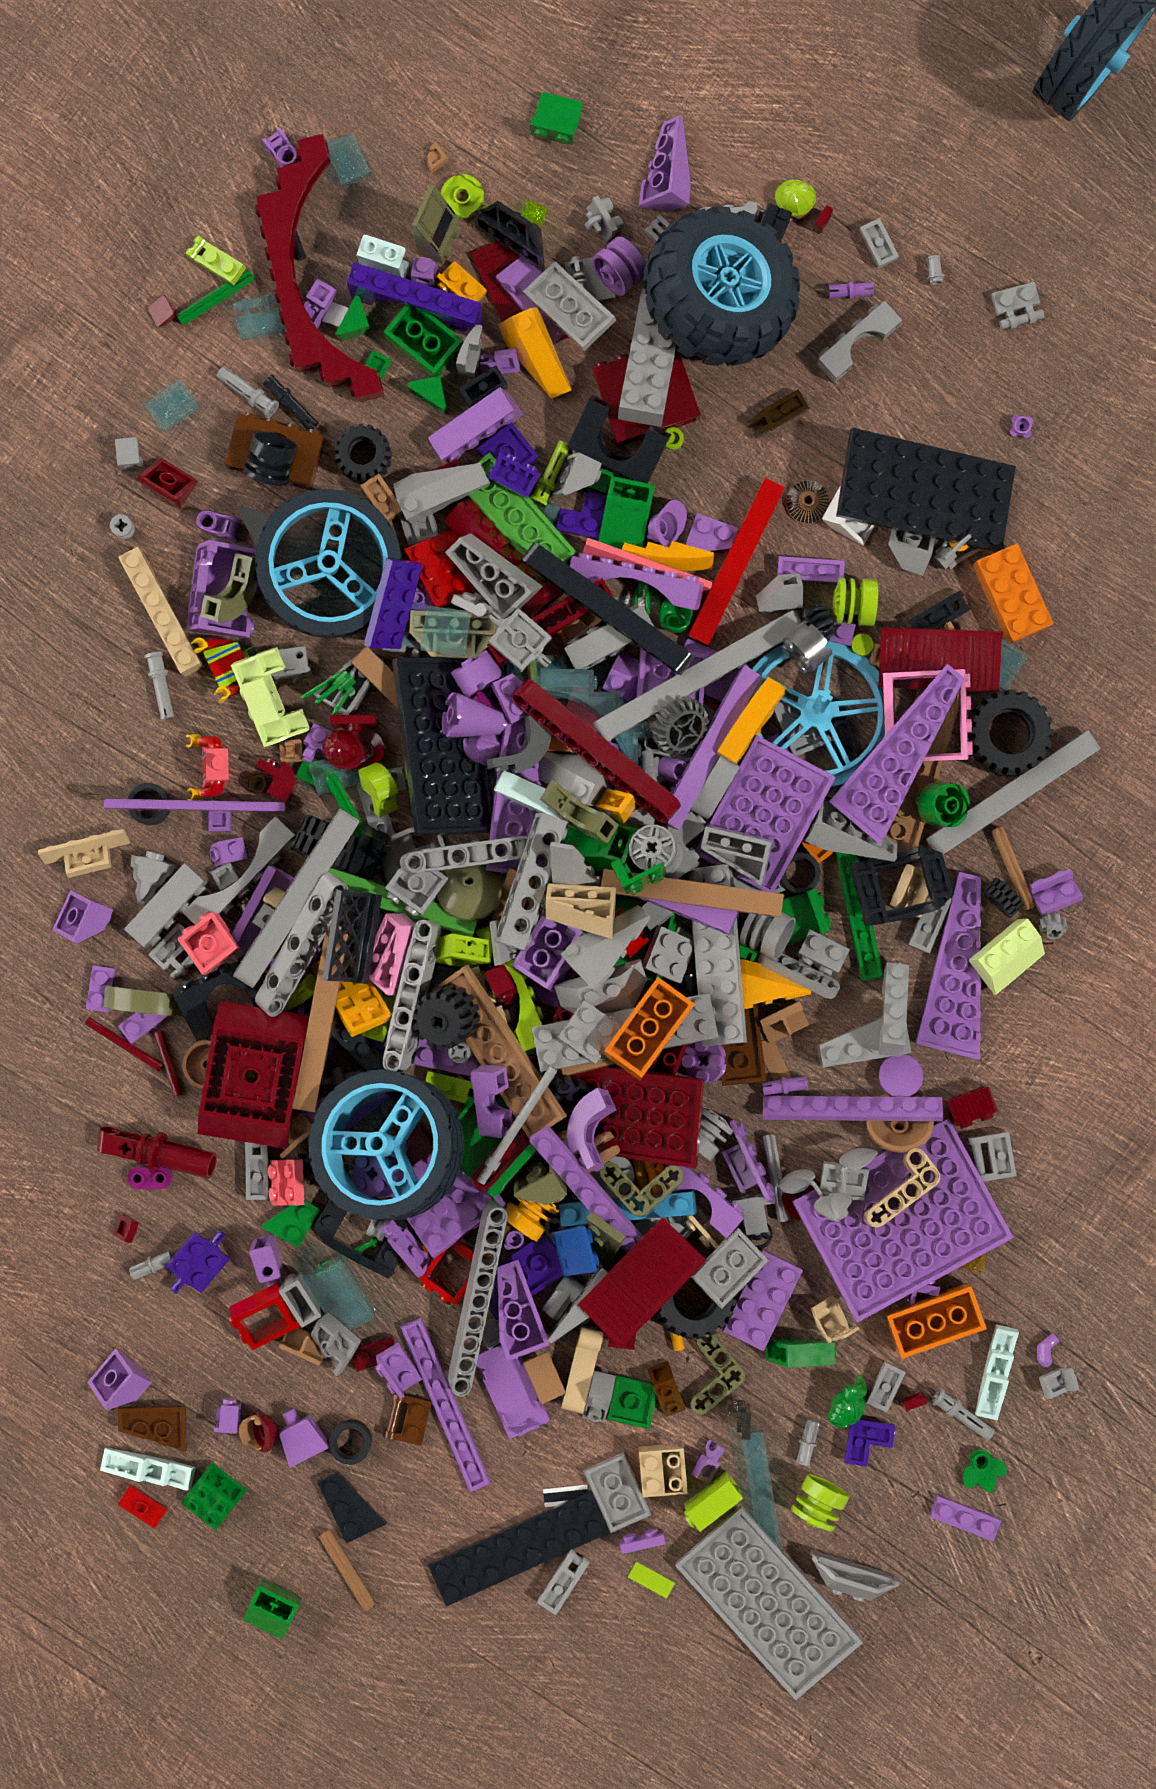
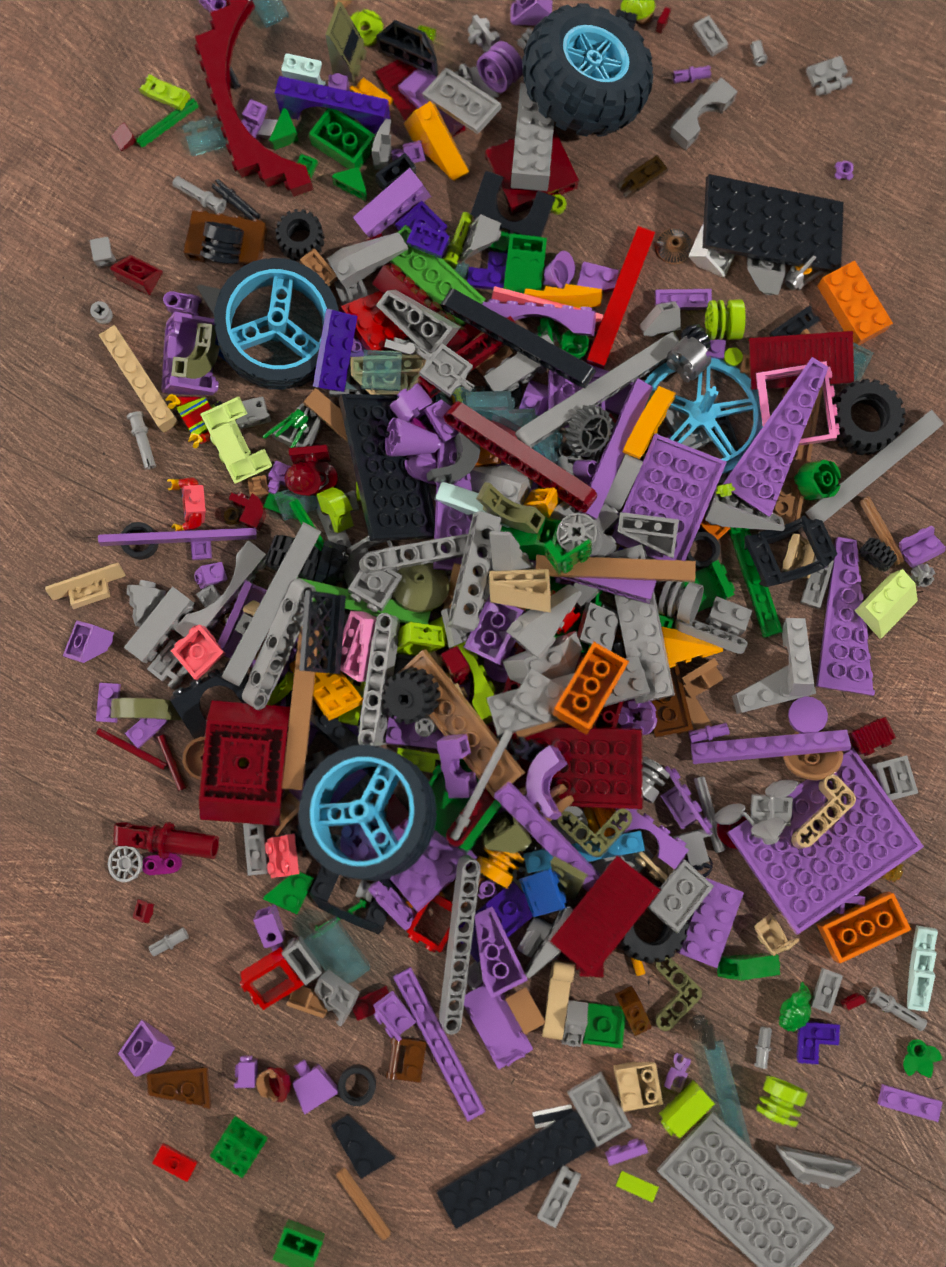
camera: 10 degrees left, 5 degrees down
(109, 1174) = (125, 863): none -> light grey wheel
(147, 1468) = (177, 1127): light aqua slope -> none
(172, 406) = (137, 211): clear light blue plate -> none
(197, 1262) = (209, 935): dark purple plate -> none
(831, 808) = (725, 489): none -> lime plate

